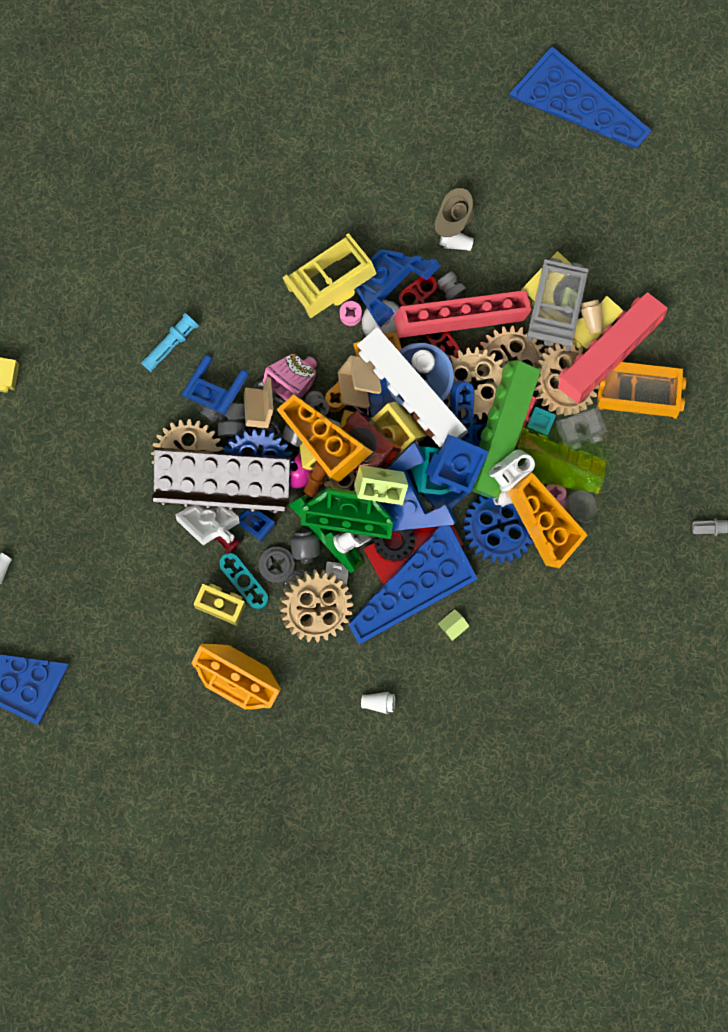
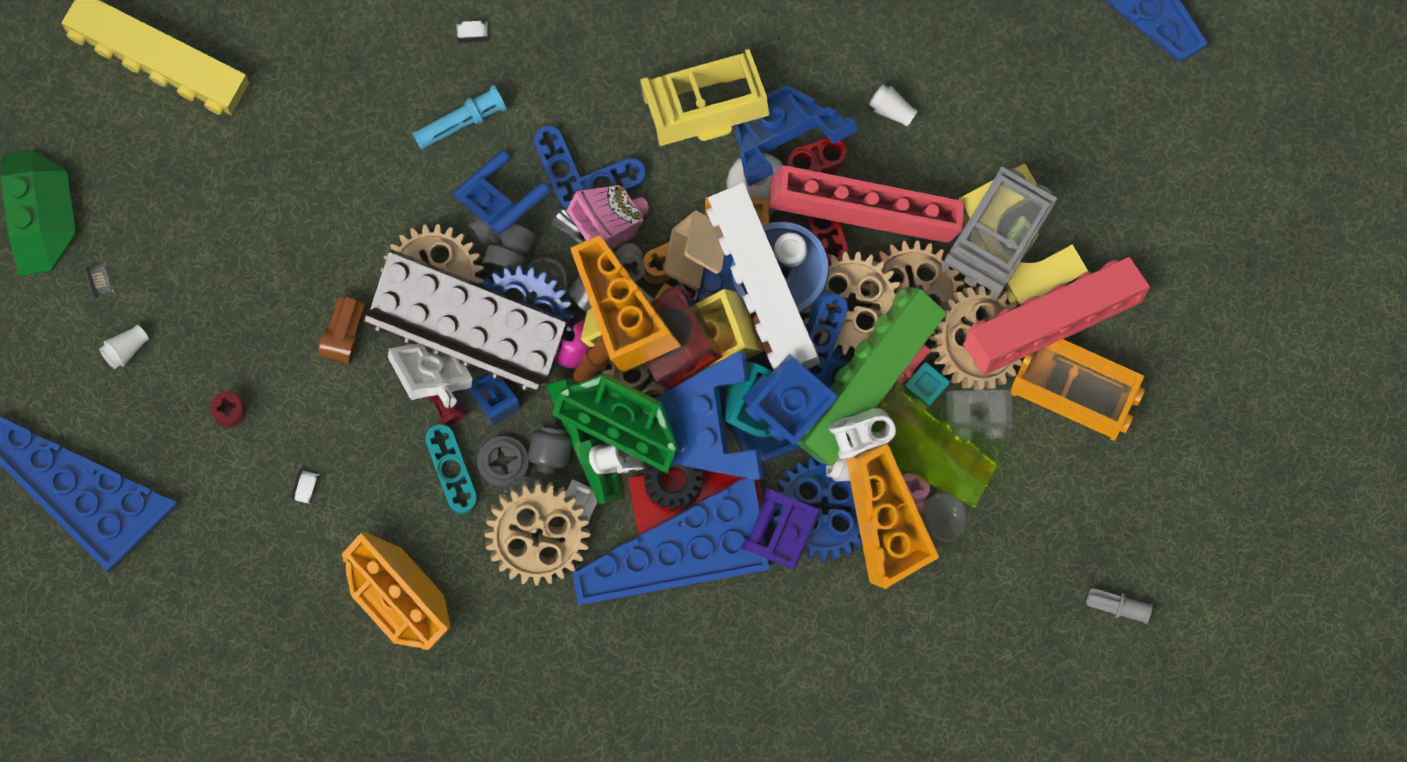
camera: 15 degrees right, 5 degrees down
(84, 593) = (229, 415): none -> dark red wheel
(140, 517) = (341, 335): none -> dark orange piece
(149, 624) = (304, 486): none -> white piece
(157, 281) = (472, 32): none -> white piece
(220, 604) = (407, 489): light yellow brick -> none
(258, 405) = (549, 239): tan panel -> none
(269, 358) = (587, 181): none -> blue beam
(352, 317) = (718, 164): bright pink wheel -> none
(379, 702) = (581, 693): white cone -> none
(381, 485) = (675, 392): yellowish green brick -> none
(451, 286) = (864, 164): light grey wheel -> none
(453, 624) = (716, 621): yellowish green slope -> none
(455, 213) = (903, 68): dark tan piece -> none
(485, 551) = (790, 534): none -> dark purple plate
(592, 316) = (1043, 262): tan cone -> none

